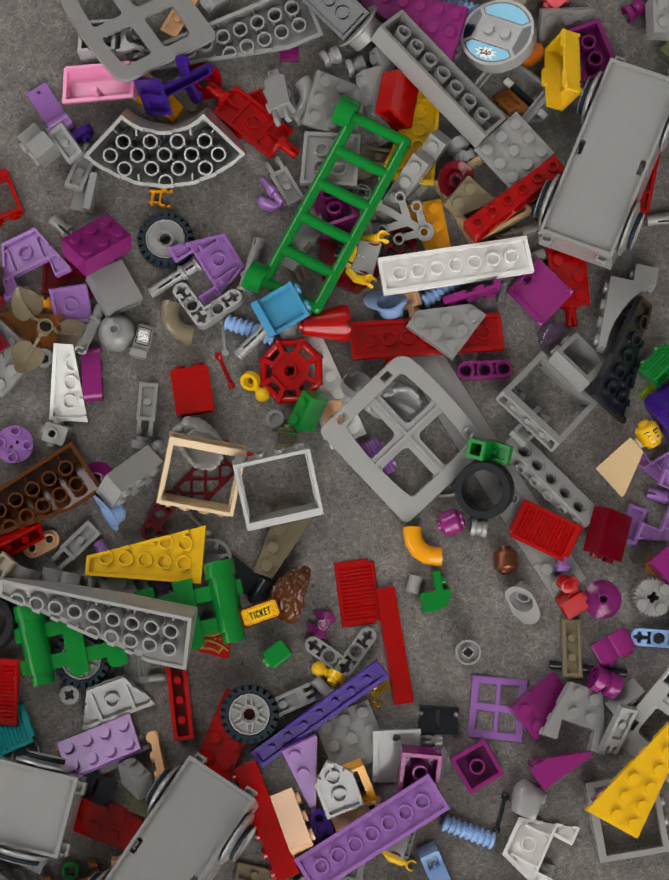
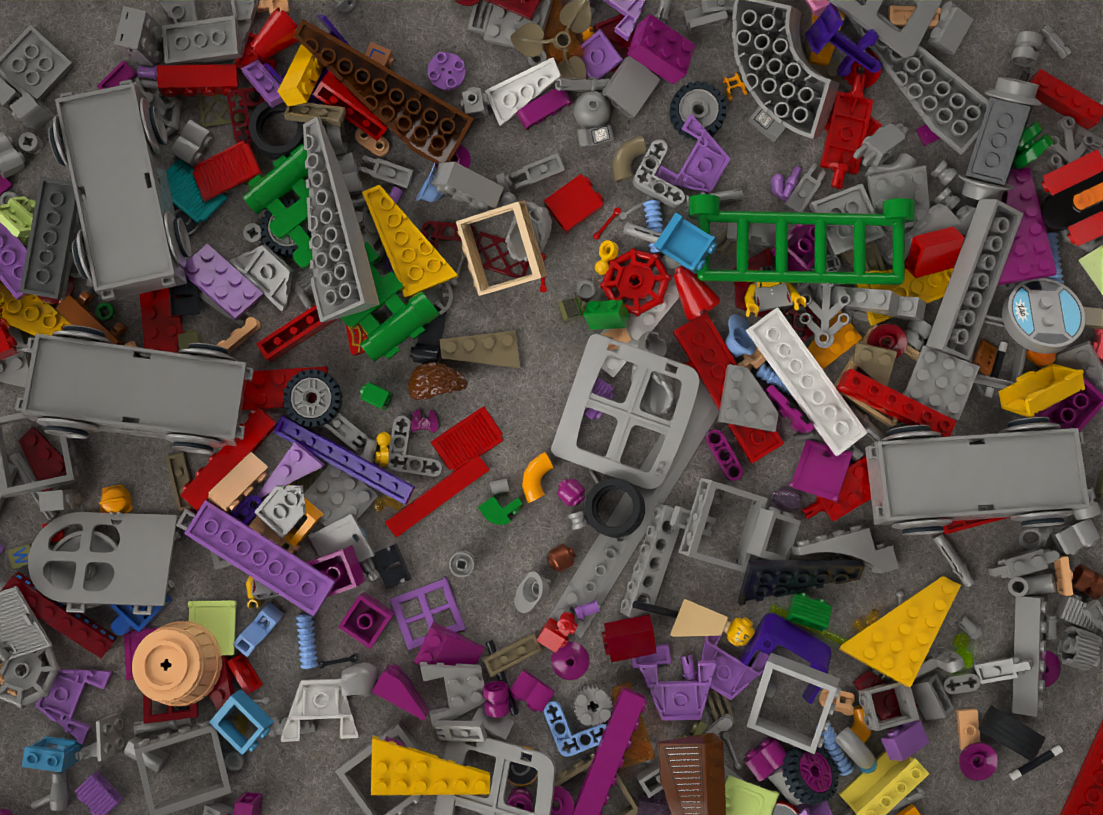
camera: 60 degrees right, 5 degrees up
(135, 777) = (208, 326): light grey brick -> none
(181, 269) = (646, 124): light grey pin -> none
(209, 187) = (766, 124): none -> light grey leg
(259, 612) = (402, 361): tile -> none
(284, 515) = (499, 337): light grey window -> none
(489, 450) = (652, 493): green brick -> none
(545, 530) = (604, 580): red window -> none
(592, 498) = (655, 609): none -> black bar

